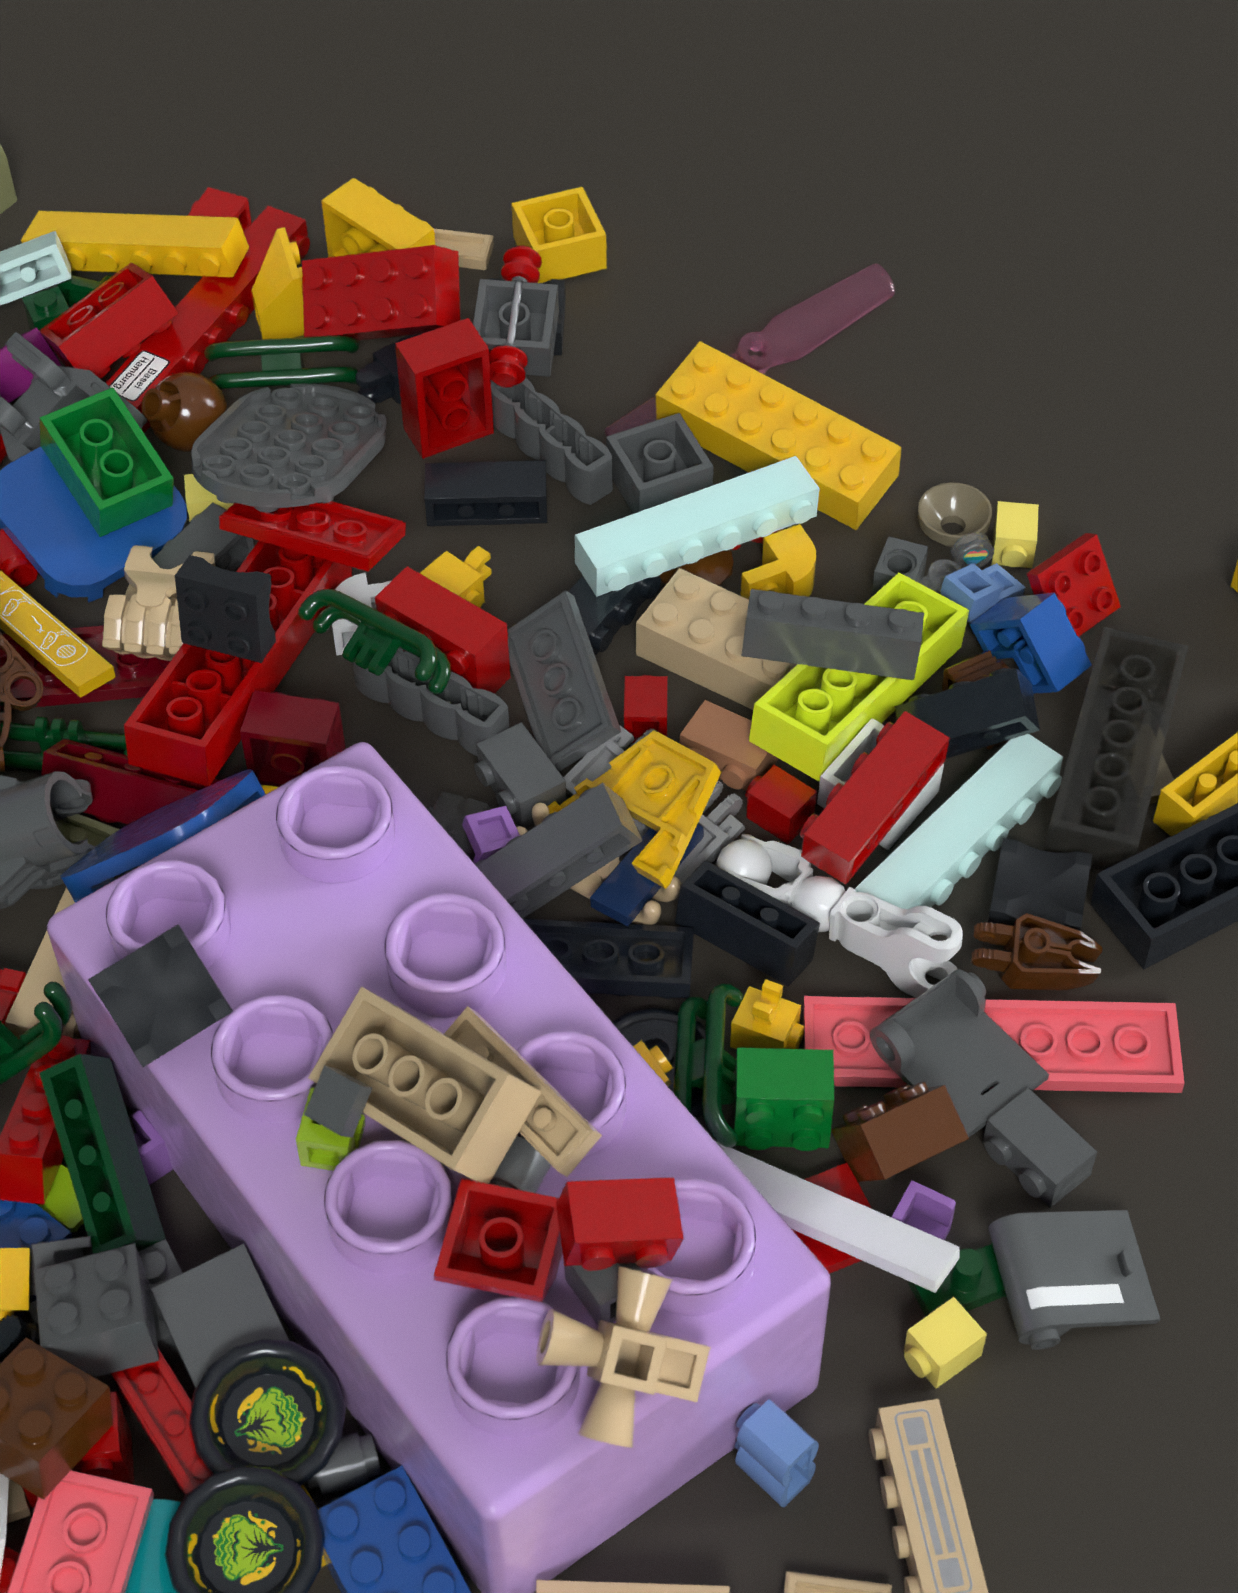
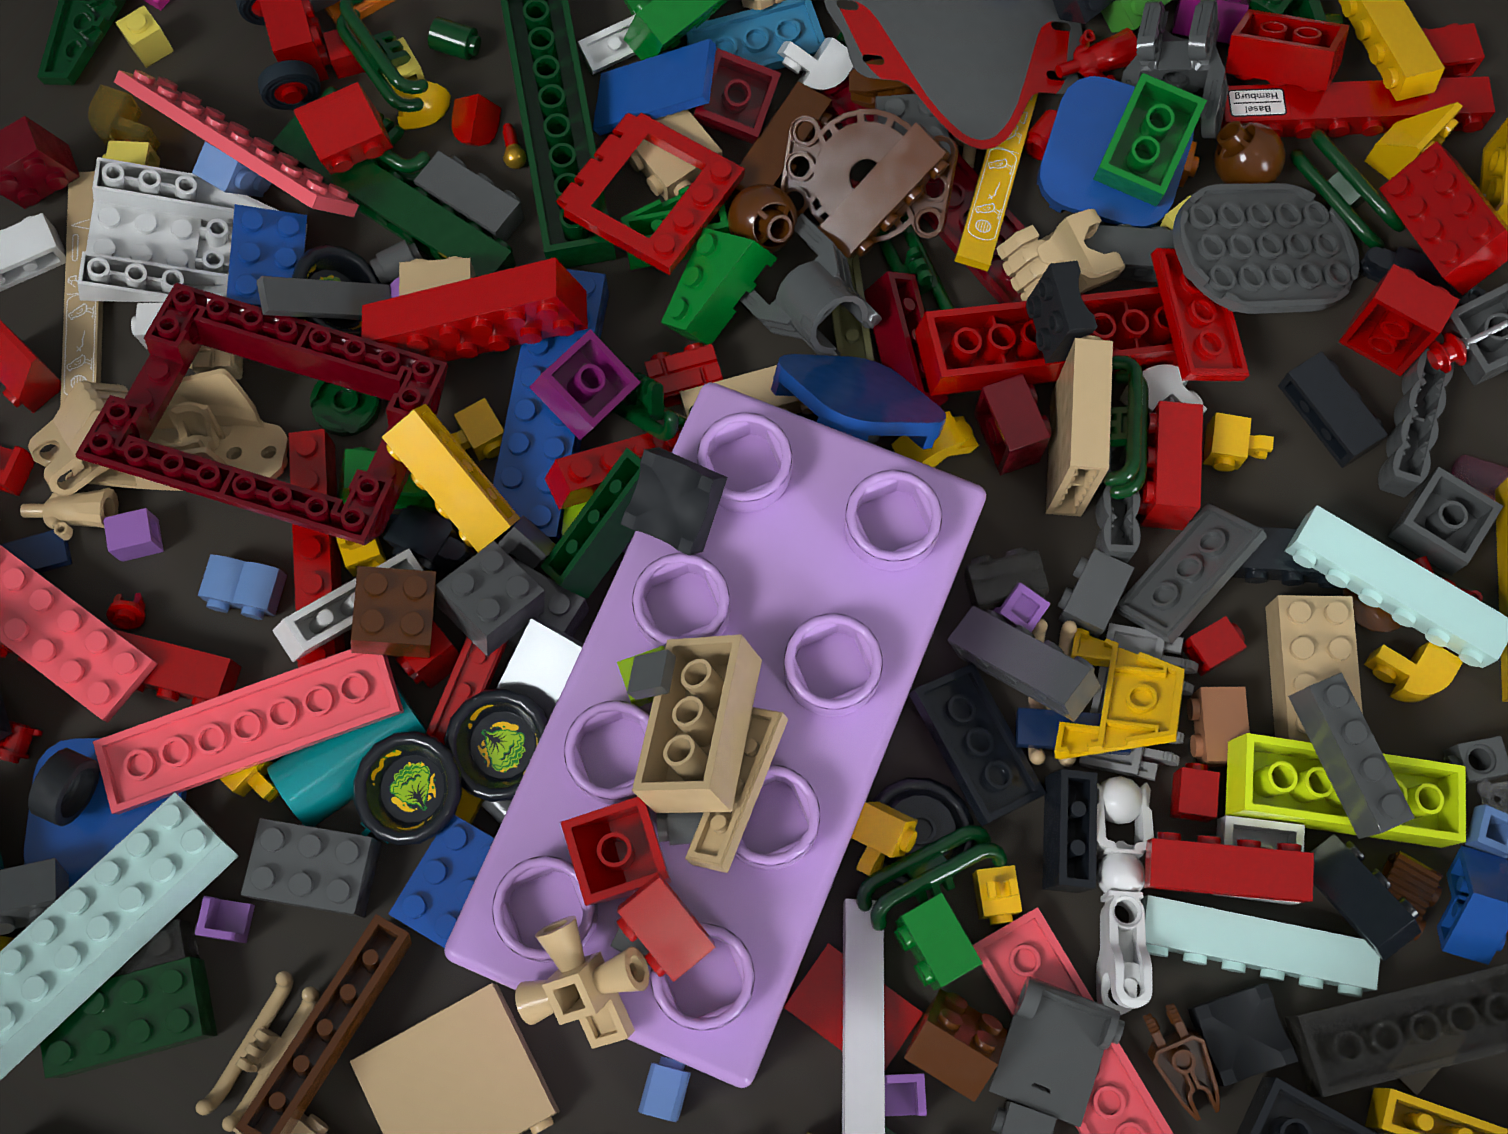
camera: 60 degrees right, 20 degrees up
(356, 660) = (1080, 427): none -> tan brick

